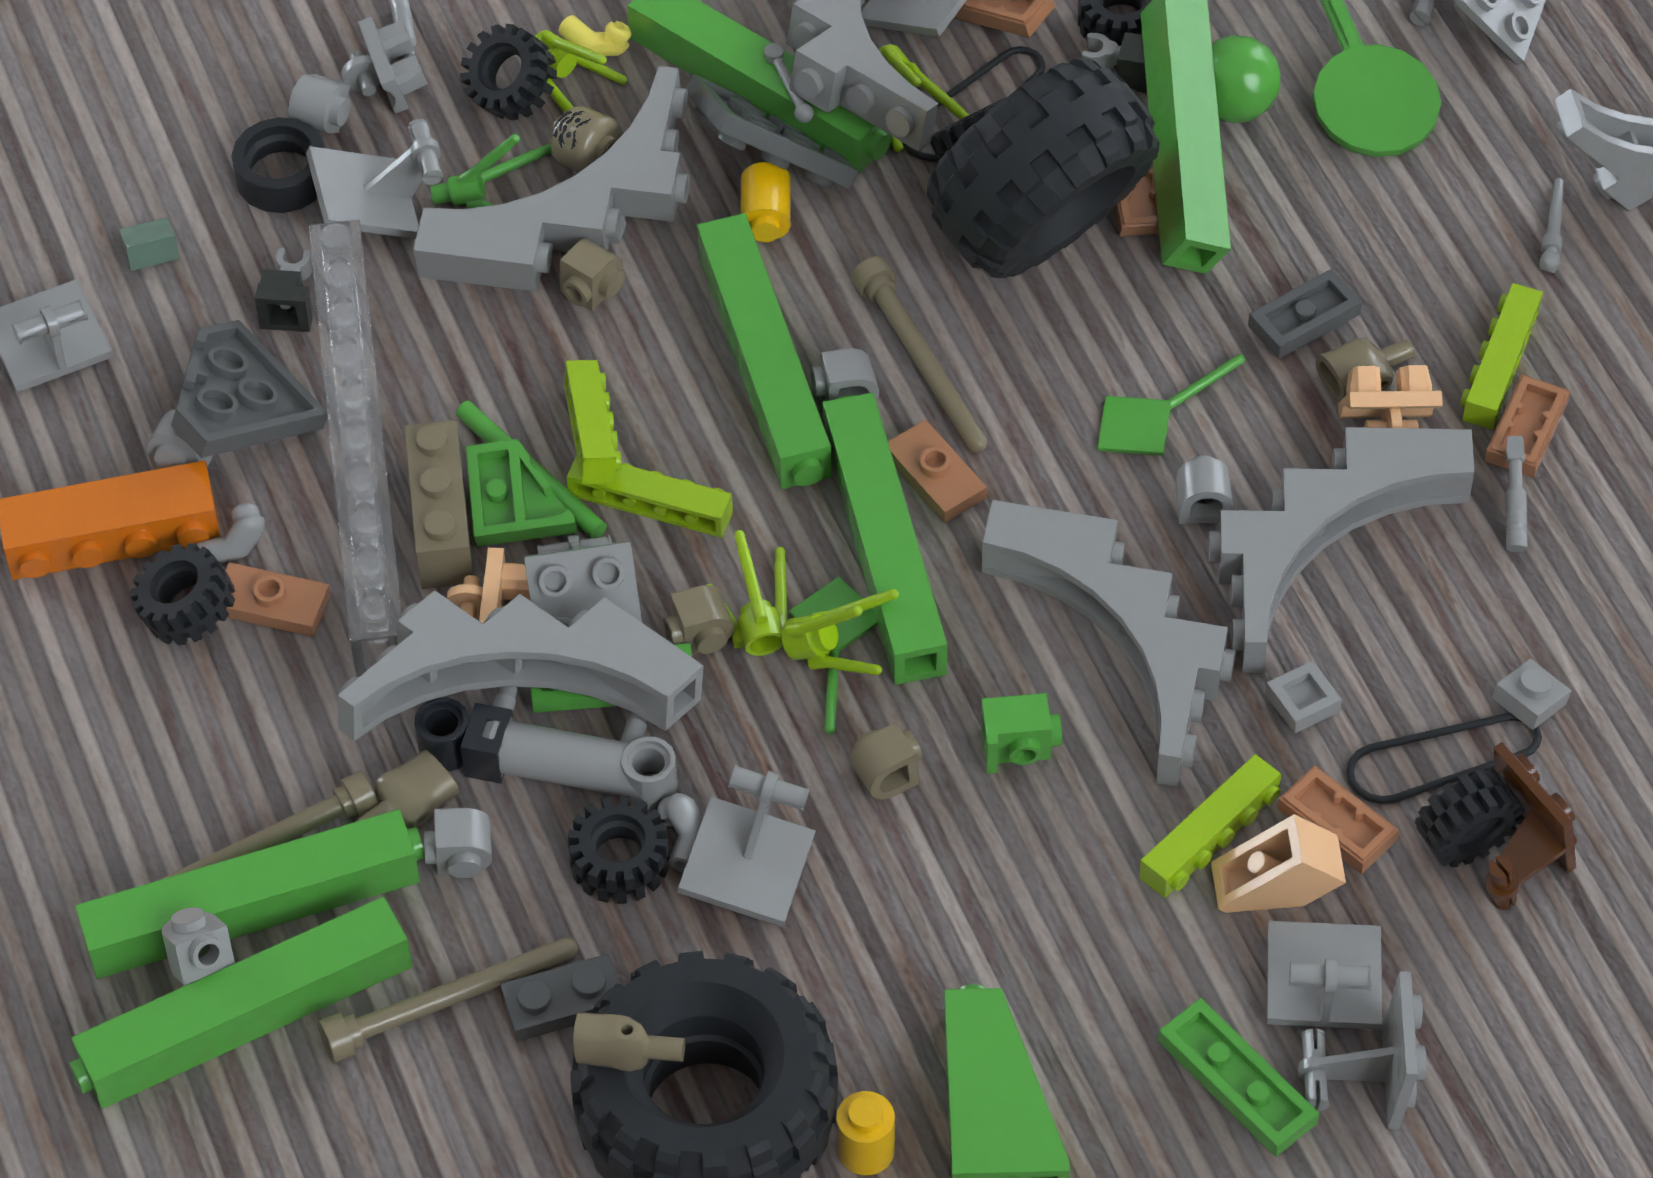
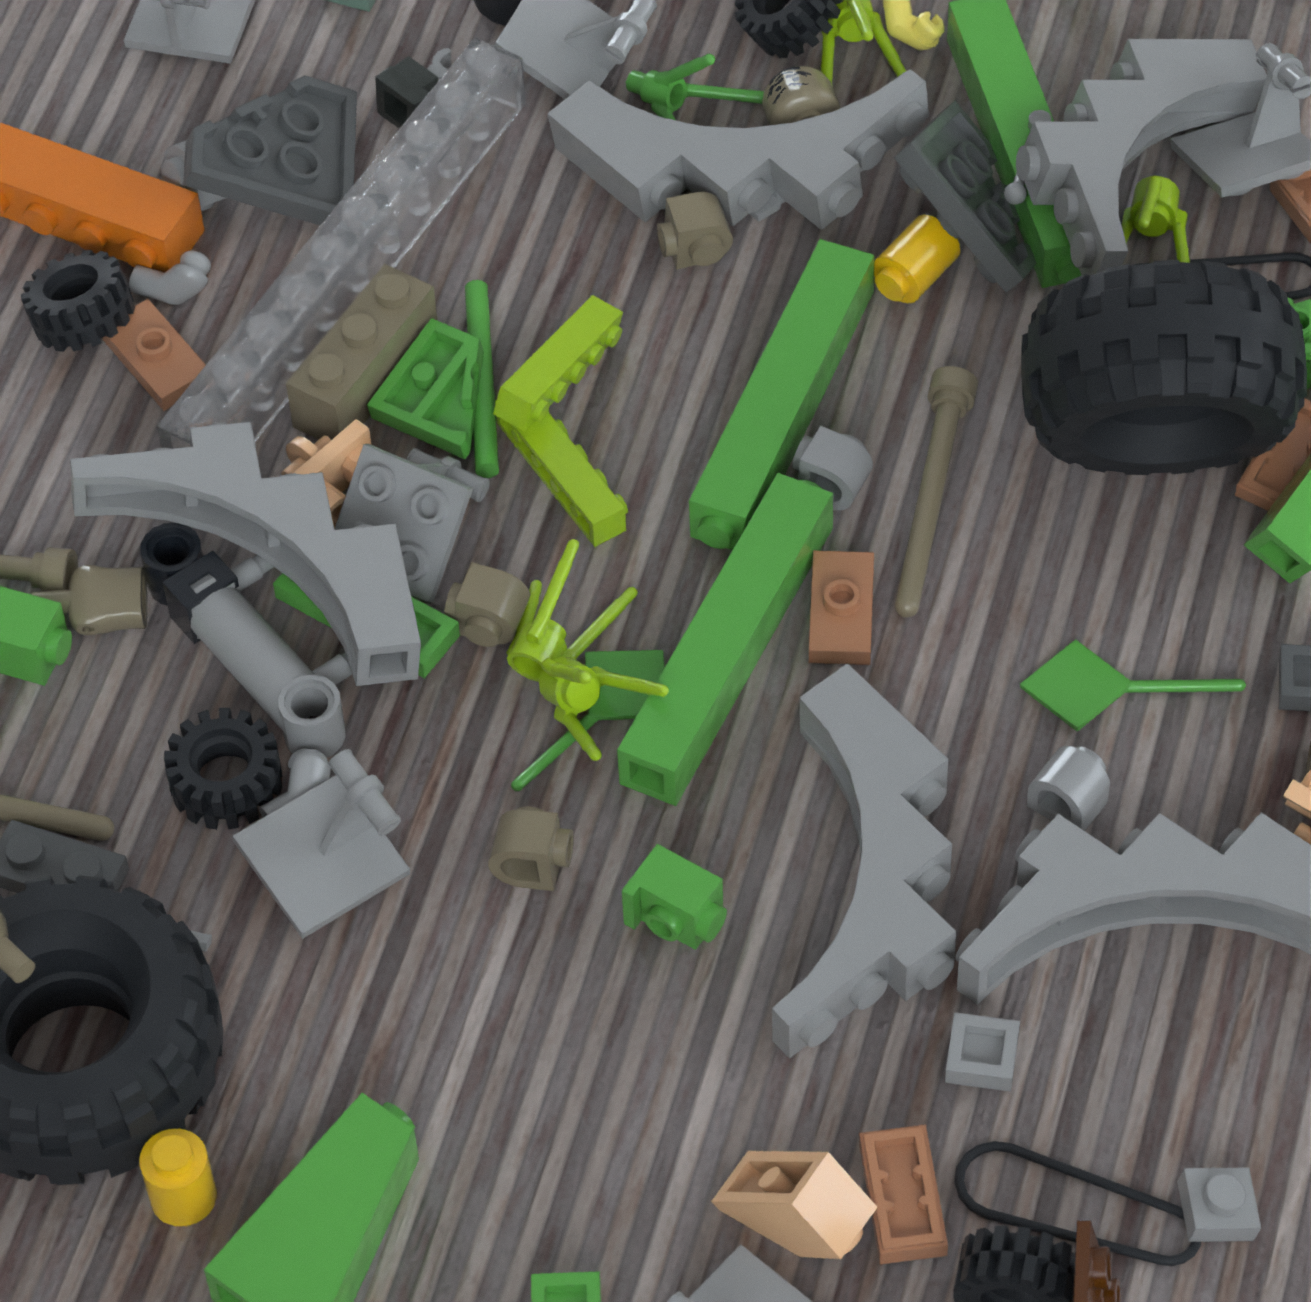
camera: 40 degrees right, 0 degrees up
(459, 842) = (94, 668): light grey plate -> none
(1210, 826) = (775, 1115): lime piece -> none

